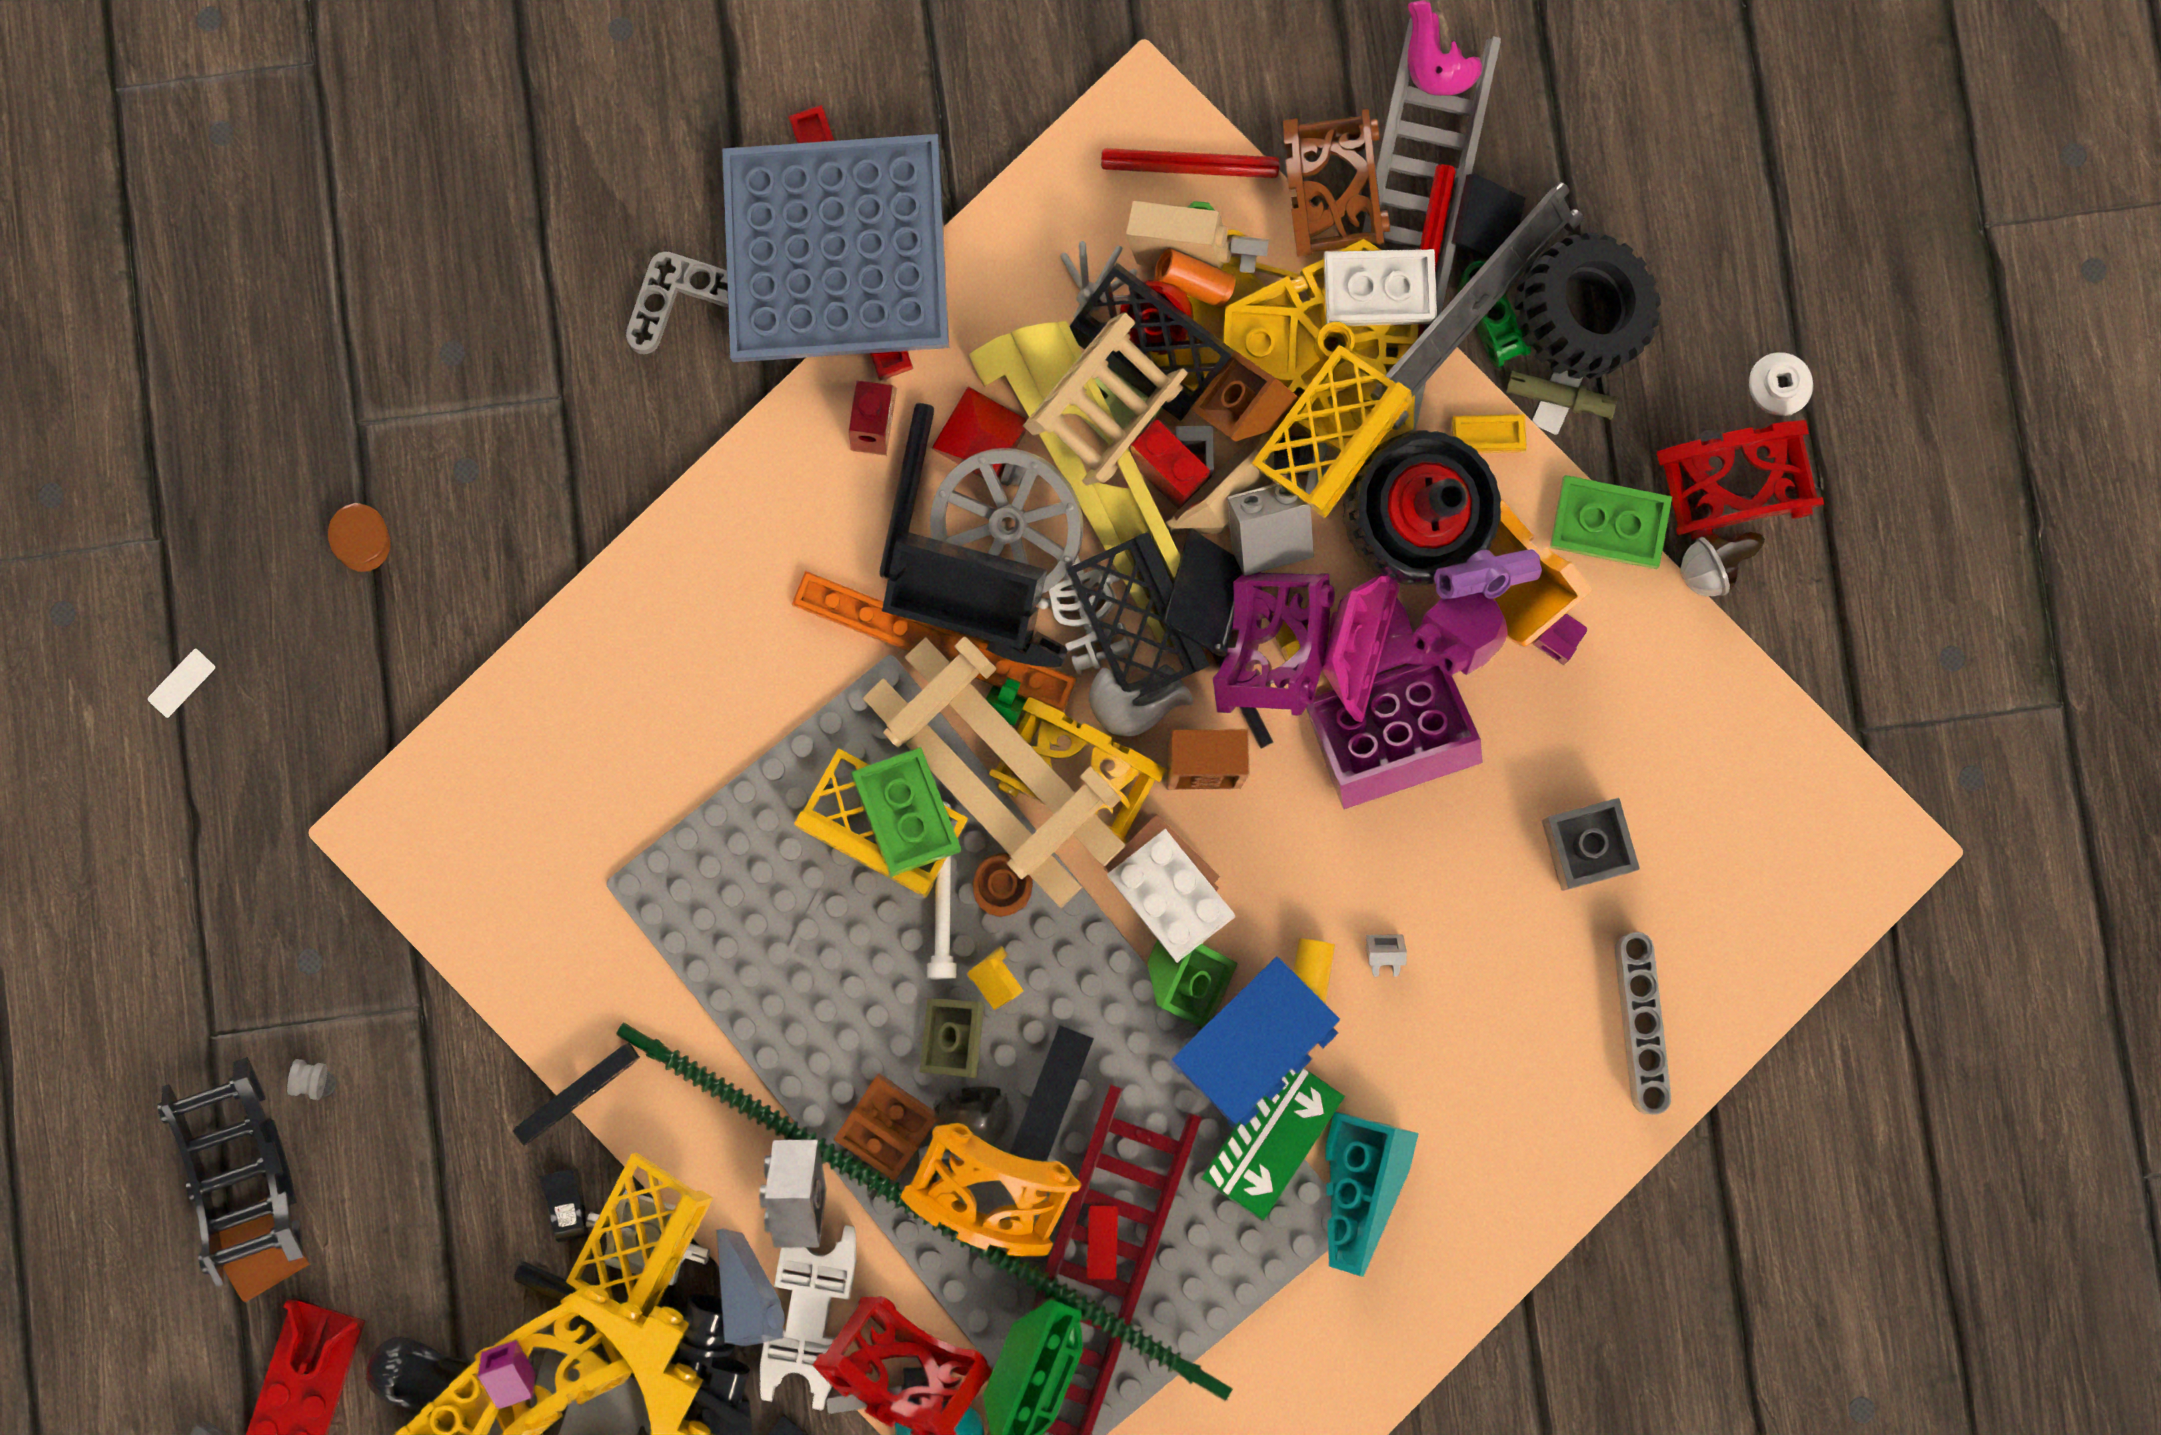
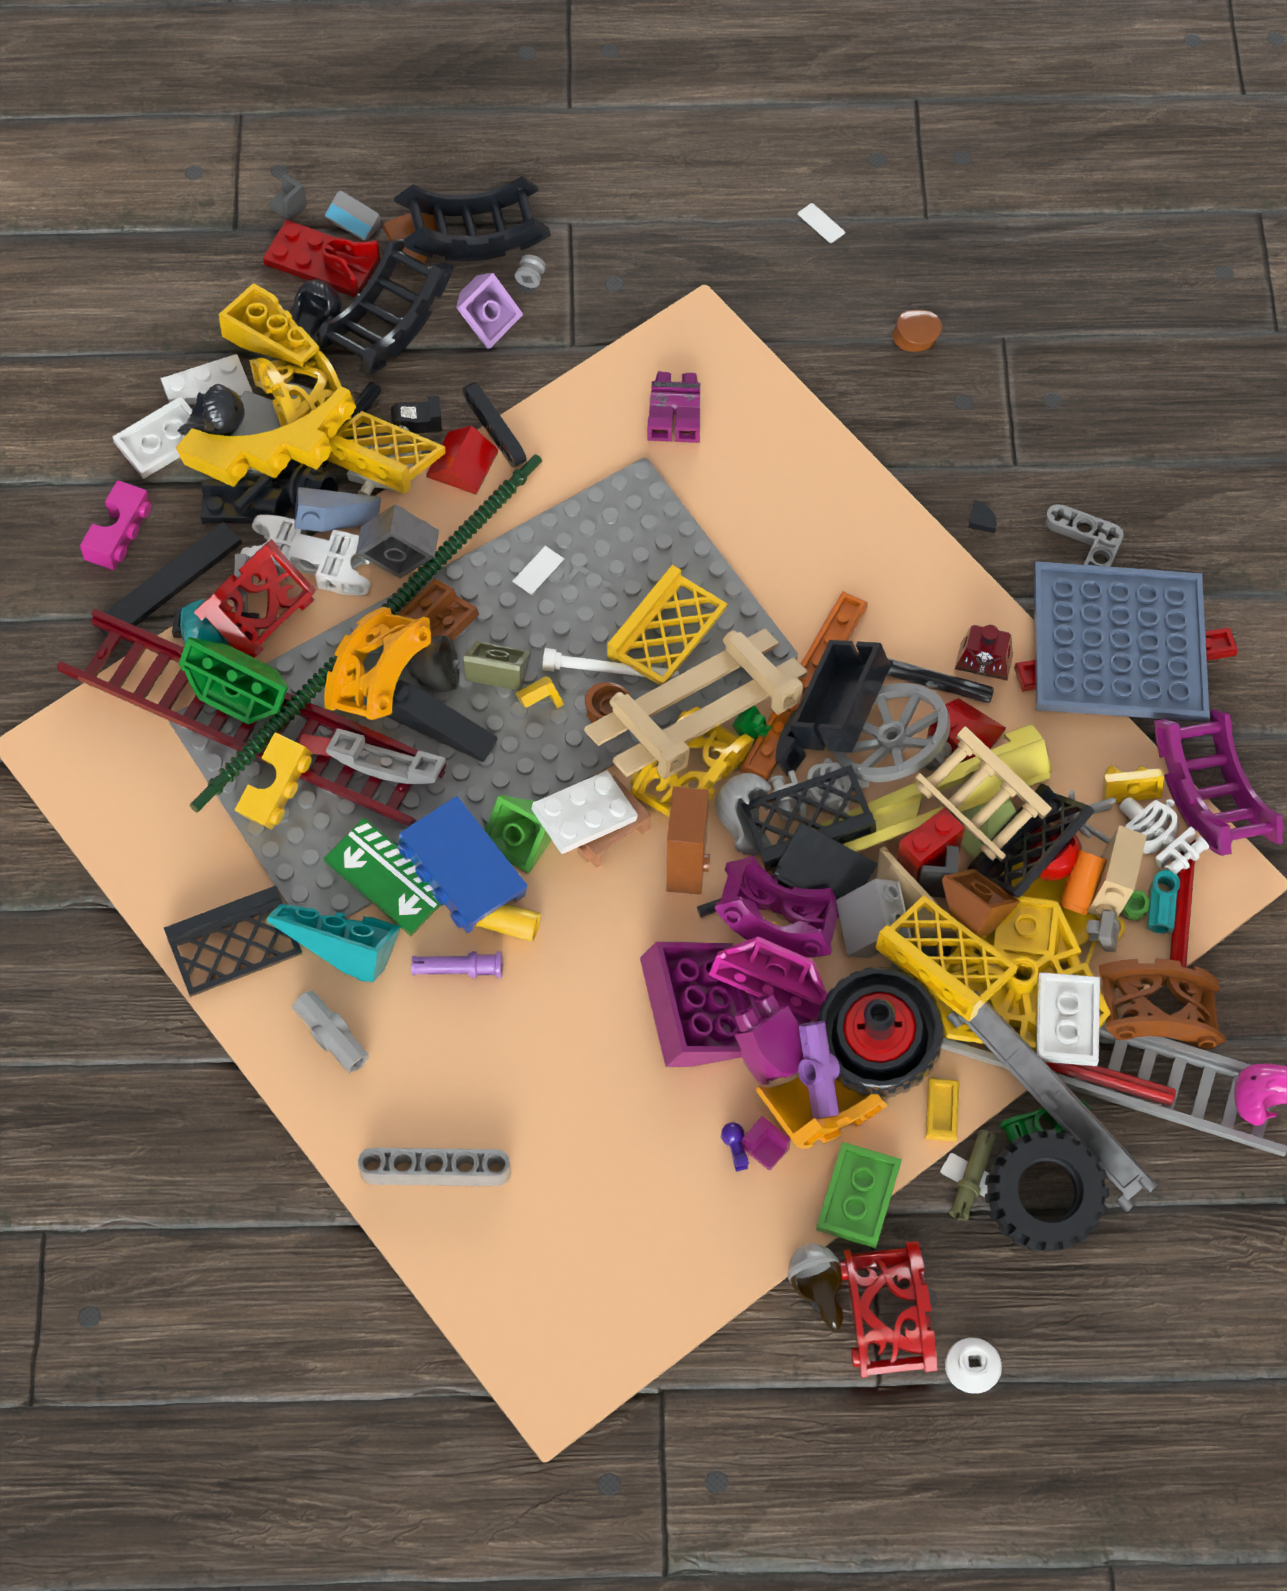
camera: 100 degrees right, 20 degrees down
(229, 1348) = (353, 216): none -> light grey slope
(378, 1132) = (488, 308): none -> lavender slope
(416, 1243) = (406, 327): none -> black fence
(506, 1374) = (301, 354): magenta panel -> none
(515, 850) = (674, 399): none -> magenta hips
(634, 1124) = (465, 460): none -> red slope
(651, 434) = (982, 518): none -> black tile
(801, 1004) = (538, 570): none -> white sticker
(905, 812) = (671, 635): bright green plate -> none
(1040, 242) = (1139, 784): none -> yellow tile
(1047, 159) = (1190, 799): none -> magenta fence
(1080, 215) = (1149, 823): none -> white torso
(1120, 1161) = (384, 763): none -> light grey slope
(1139, 1288) = (267, 804): none -> yellow arch
(1198, 186) = (1162, 904): none -> teal piece
(1356, 1343) = (216, 921): none -> black fence
(1375, 1013) = (473, 964): none -> medium lavender pin
(1386, 951) = (521, 977): light grey tile -> none
(1485, 1176) = (330, 1031): none -> light grey piece
(1486, 216) = (1132, 1123): black tile -> none
(1556, 675) = (732, 1135): none -> dark purple arm
(1590, 844) = (587, 1139): flat silver brick -> none

